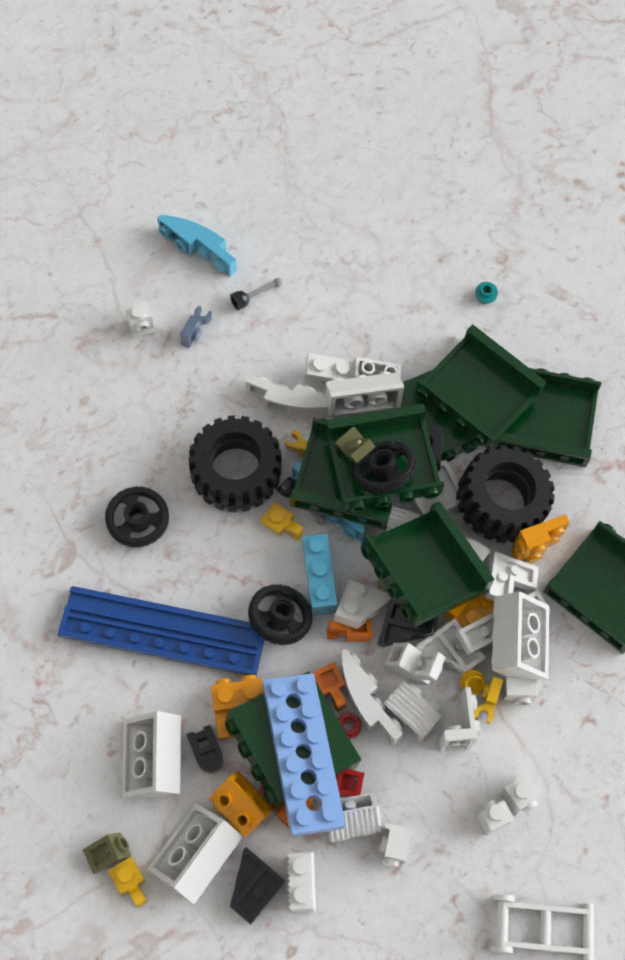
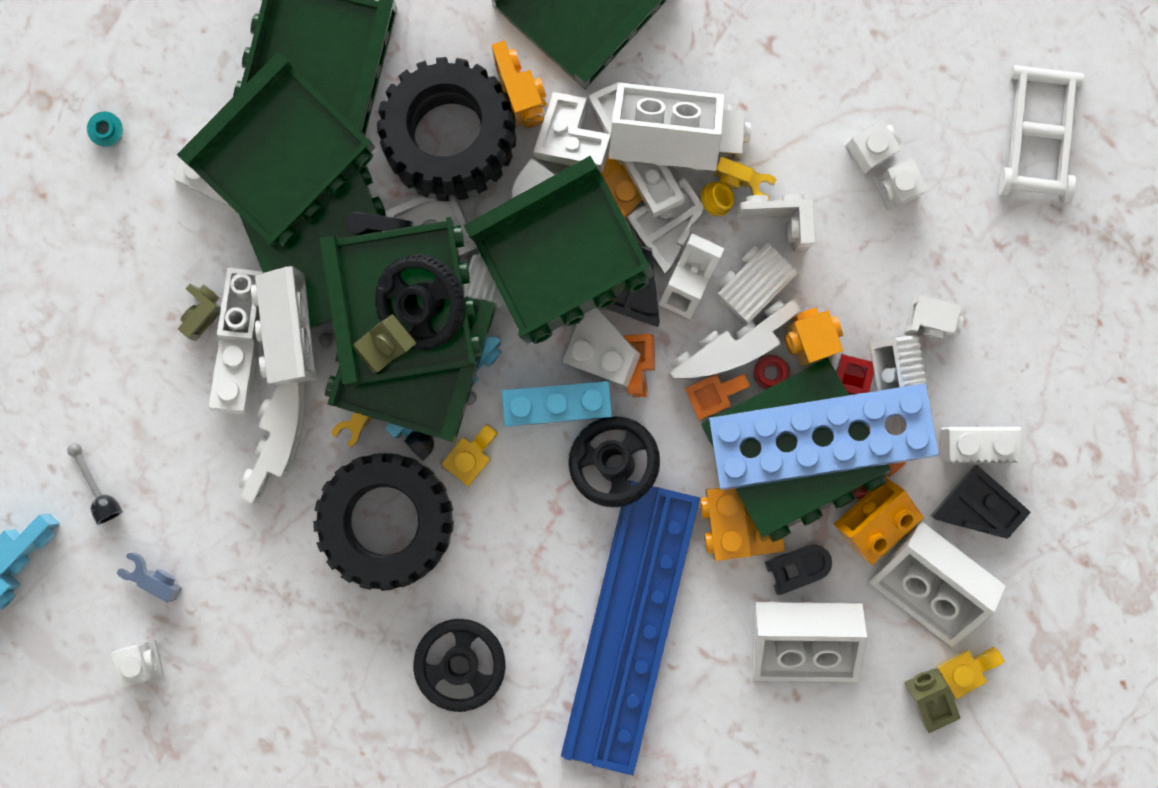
camera: 80 degrees left, 20 degrees up
(367, 349) = (200, 317): none -> olive bracket
(376, 749) = (813, 336): none -> light orange brick

